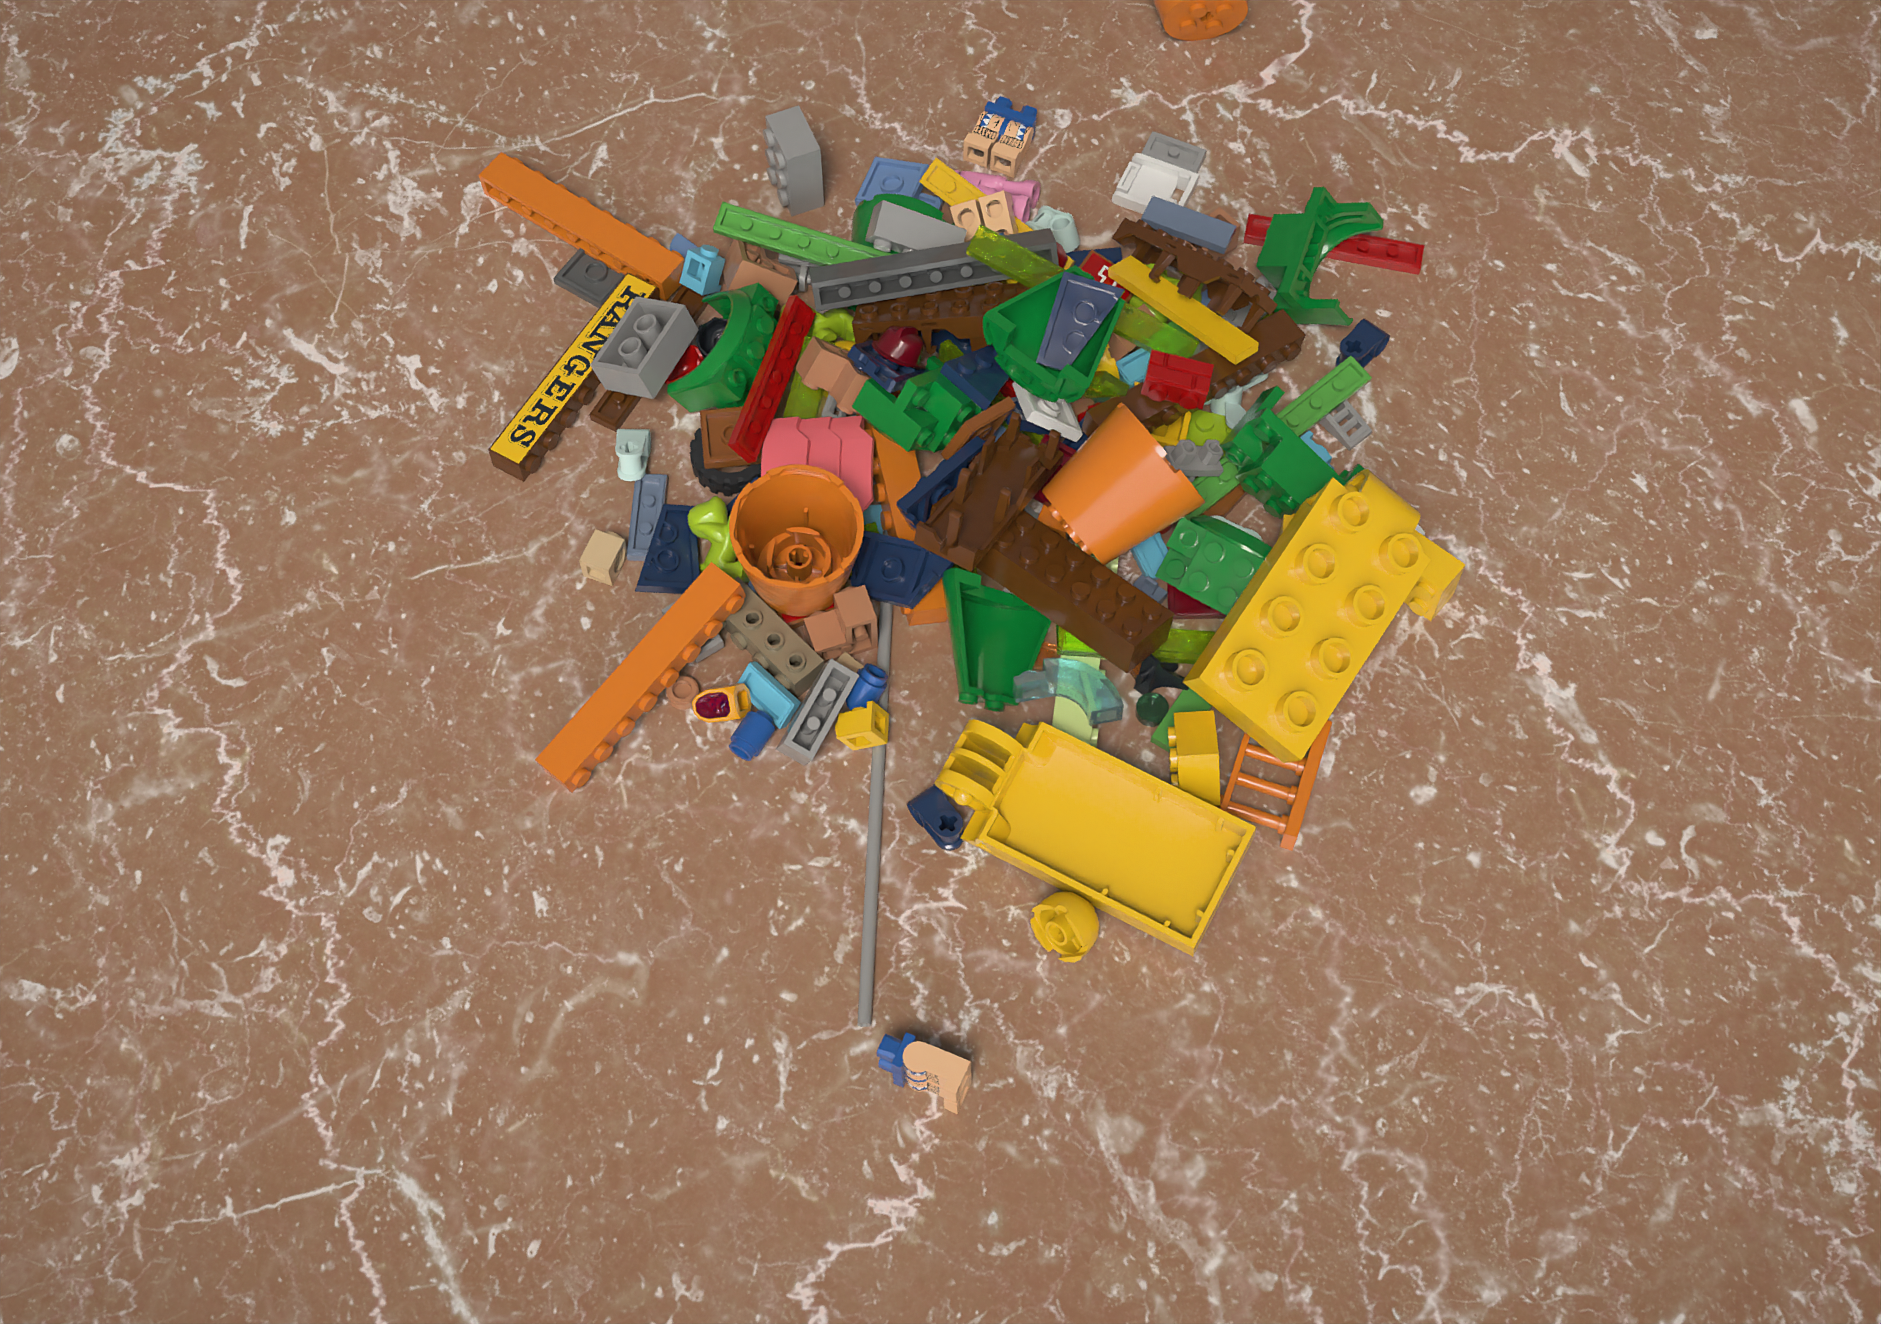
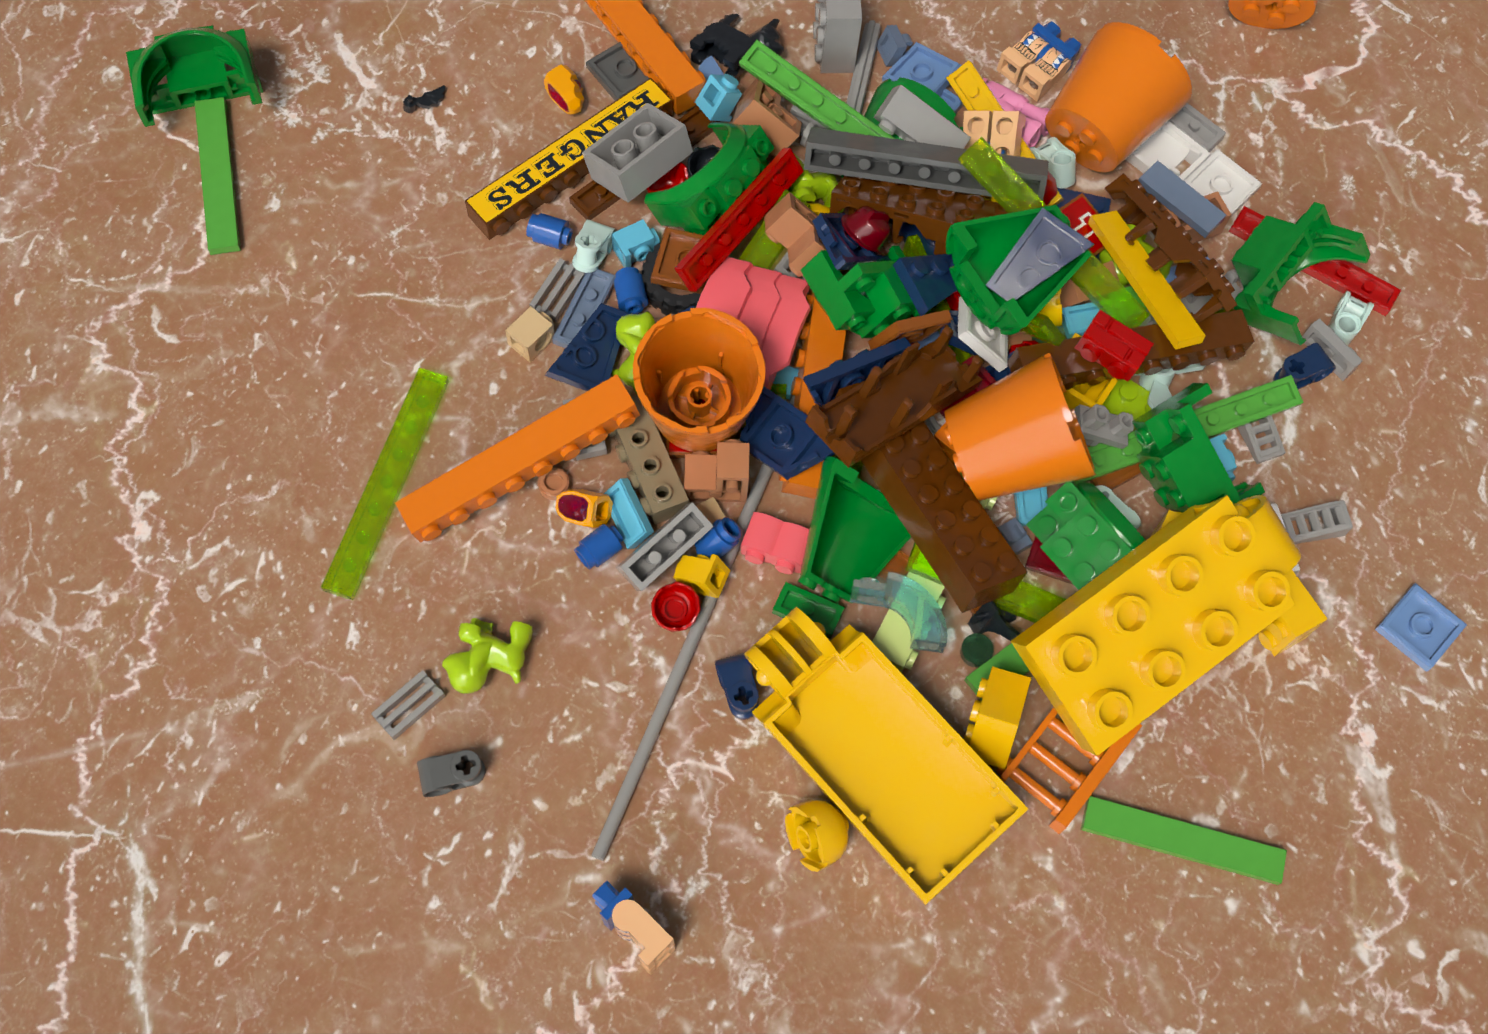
camera: 15 degrees right, 5 degrees up
(159, 410) = (194, 69): none -> green piece
(220, 508) = (217, 176): none -> bright green tile
(406, 367) = (426, 101): none -> black piece
(514, 749) = (385, 484): none -> clear neon green tile
(543, 311) = (564, 89): none -> light orange rock
(583, 452) = (549, 230): none -> blue brick
(617, 485) = (568, 270): none -> light grey tile
(636, 922) = (400, 695): none -> light grey tile
(672, 437) = (634, 242): none -> medium azure brick
(672, 891) = (470, 669): none -> lime animal
(686, 483) = (630, 290): none -> blue brick
(687, 997) = (445, 774): none -> dark grey piece
(694, 216) = (730, 44): none -> black animal
(832, 195) = (863, 65): none -> light grey axle
(850, 765) = (676, 607): none -> red hair
(853, 166) = (893, 44): none -> sand blue tile
(922, 674) = (775, 543): none -> coral brick
(958, 717) = (812, 605): none -> green plate
(1091, 147) = (1117, 96): none -> orange cone
(1221, 191) = (1227, 178): none -> white tile
(1384, 290) = (1349, 317): none -> light aqua piece
(1390, 322) = (1340, 354): none -> light grey plate
(1408, 815) = (1184, 840): none -> bright green tile
(1438, 473) = (1334, 516): none -> light grey slope
(1554, 548) = (1421, 627): none -> medium blue tile

